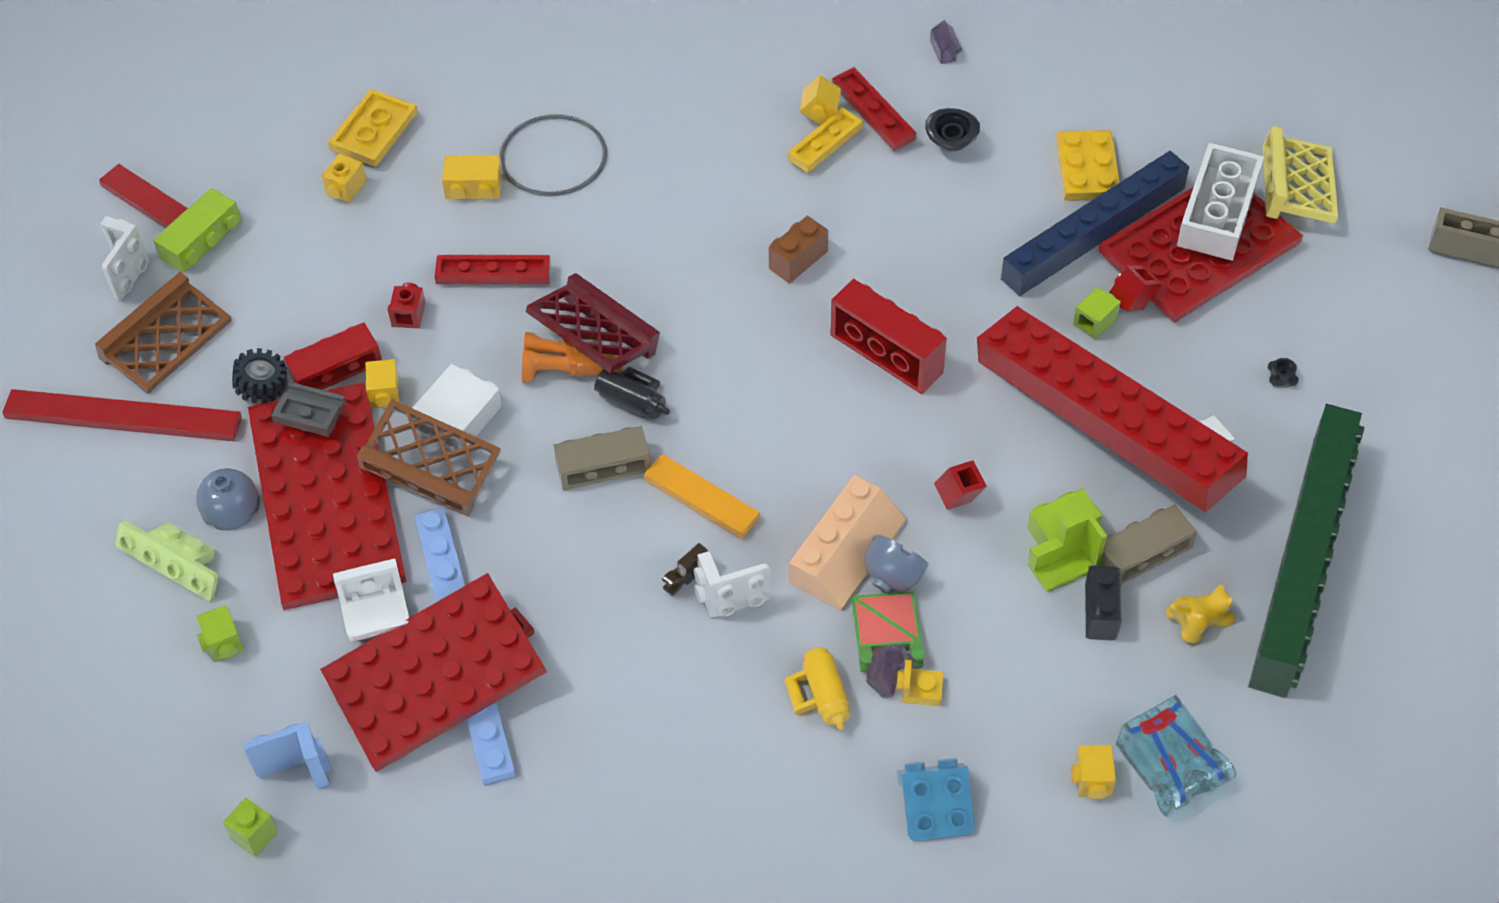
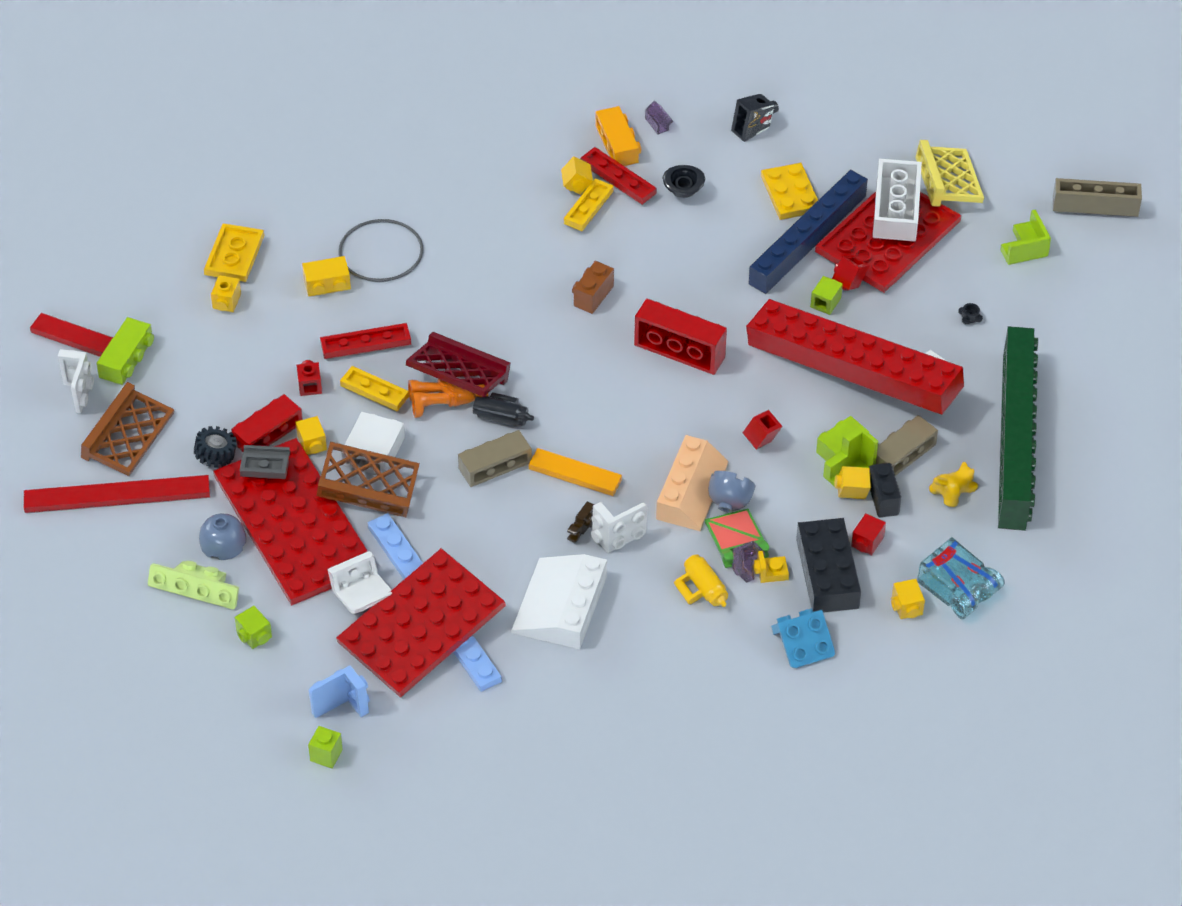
camera: 15 degrees left, 5 degrees down
(483, 334) = (374, 388): none -> yellow plate
(628, 675) = (561, 599): none -> white slope
(887, 58) = (617, 135): none -> light orange brick
(997, 699) = (828, 565): none -> black brick
(1062, 583) = (853, 482): none -> yellow brick
(1064, 59) = (752, 116): none -> black torso
(1064, 663) = (868, 534): none -> red brick
(1389, 288) = (1031, 243): none -> lime panel

